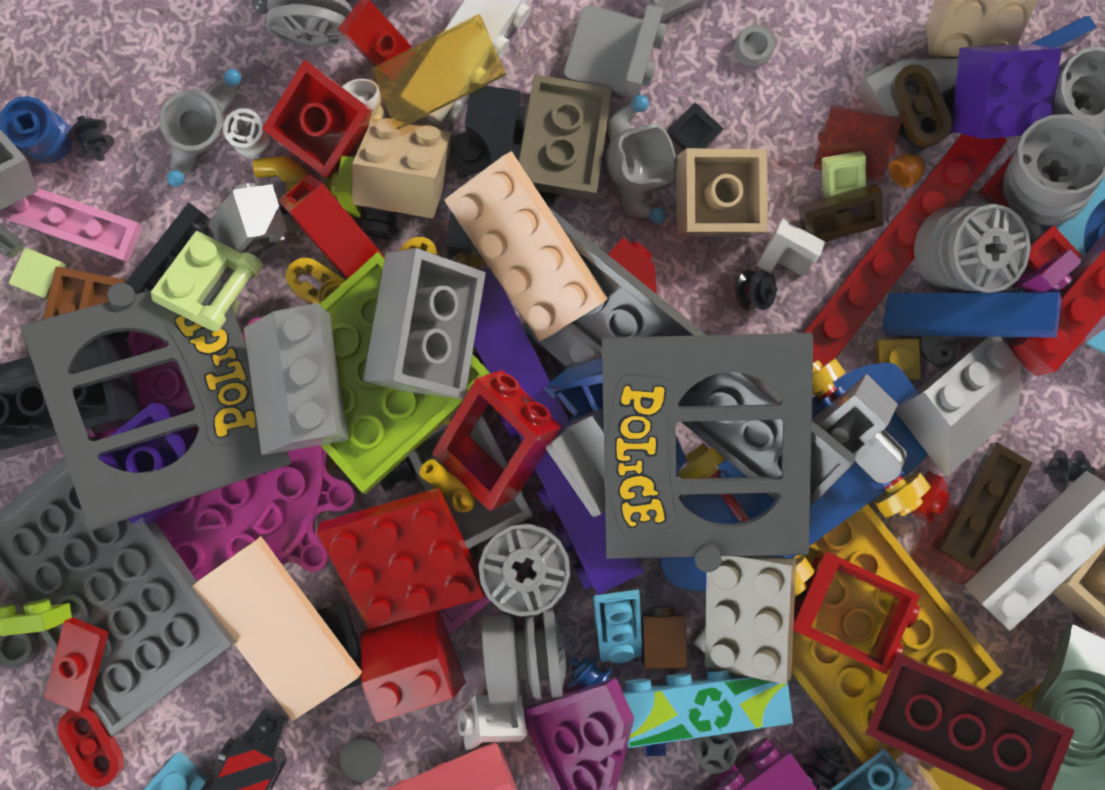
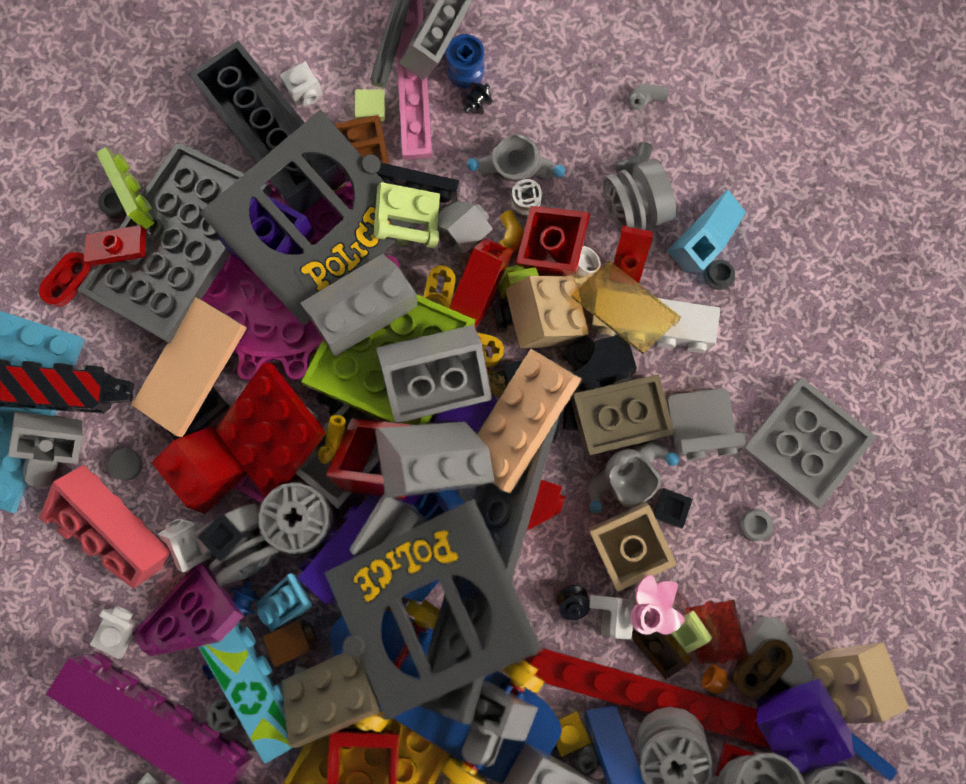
camera: 65 degrees right, 5 degrees down
(511, 665) = (221, 537): none -> black plate
(529, 369) = (432, 459): none -> light grey slope
(805, 199) = (656, 603): none -> bright pink plate

